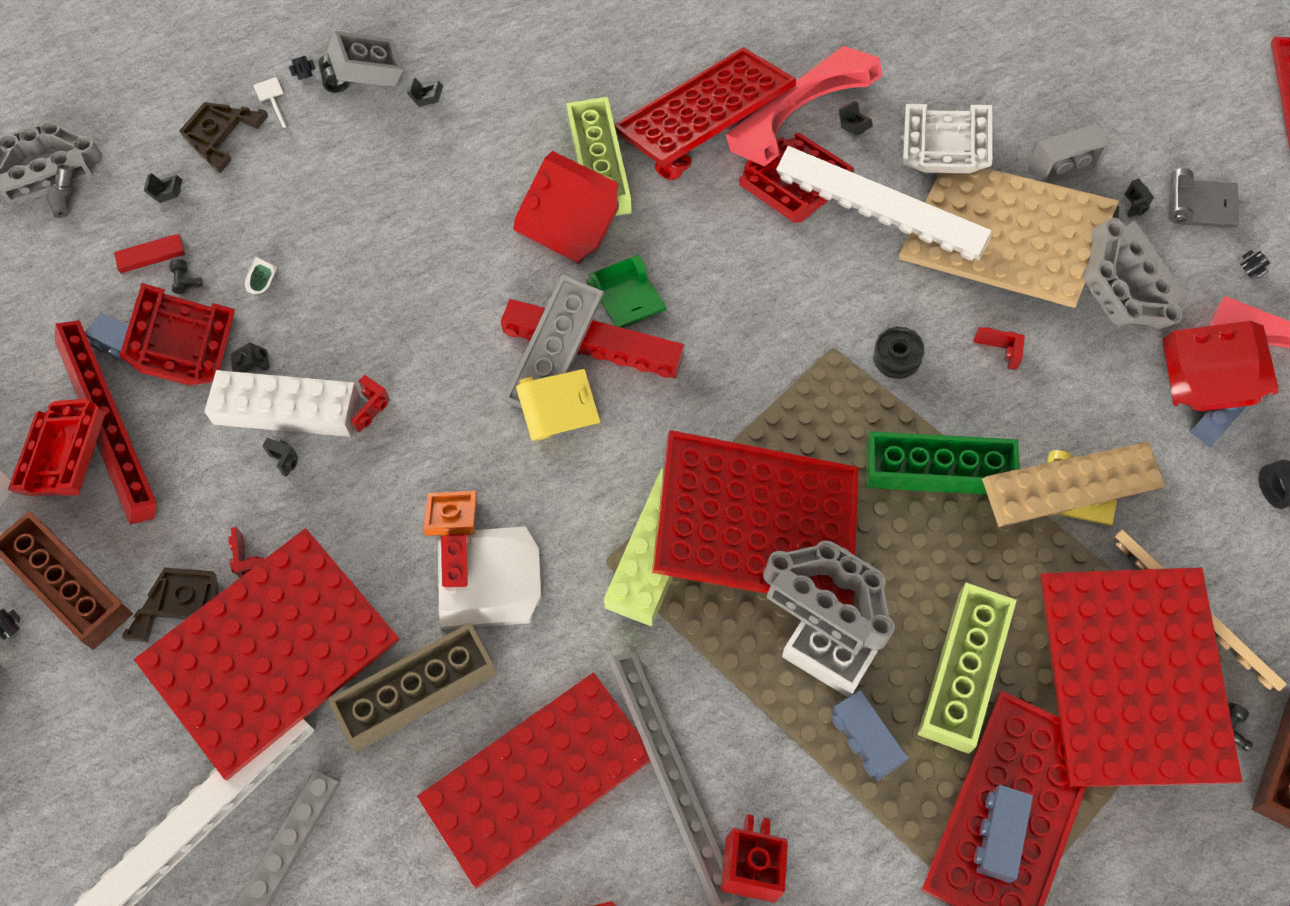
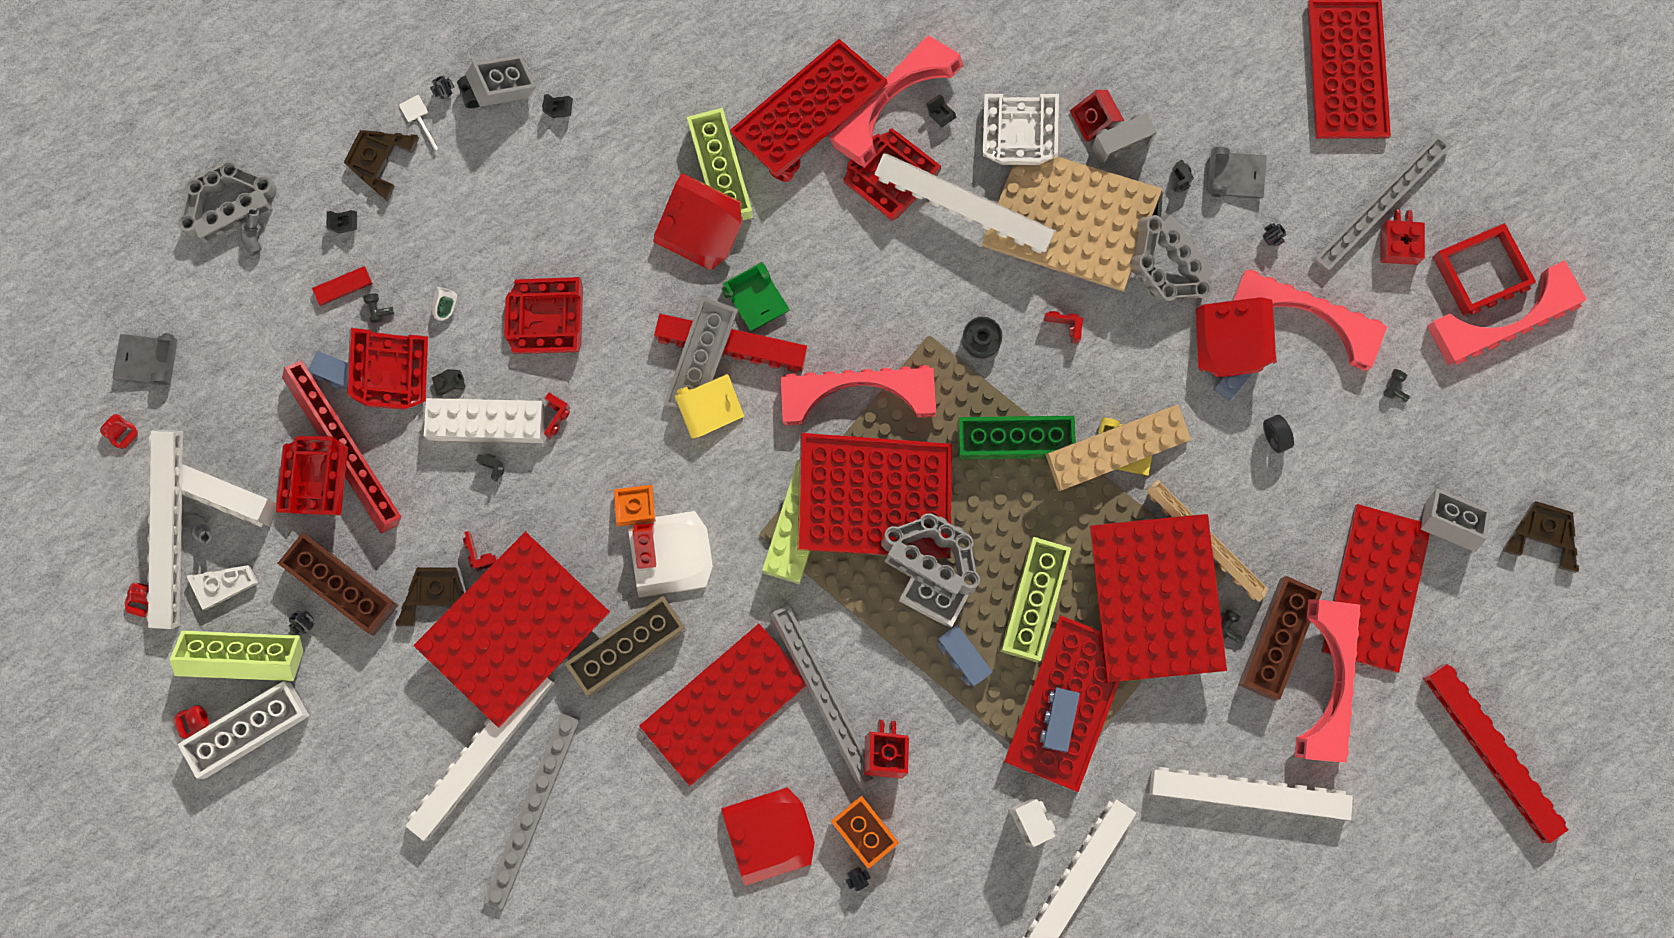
camera: 10 degrees left, 15 degrees up
(375, 295) = (544, 315): none -> red wedge
(809, 396) = (804, 392): none -> coral arch
(1031, 128) = (1096, 113): none -> red slope

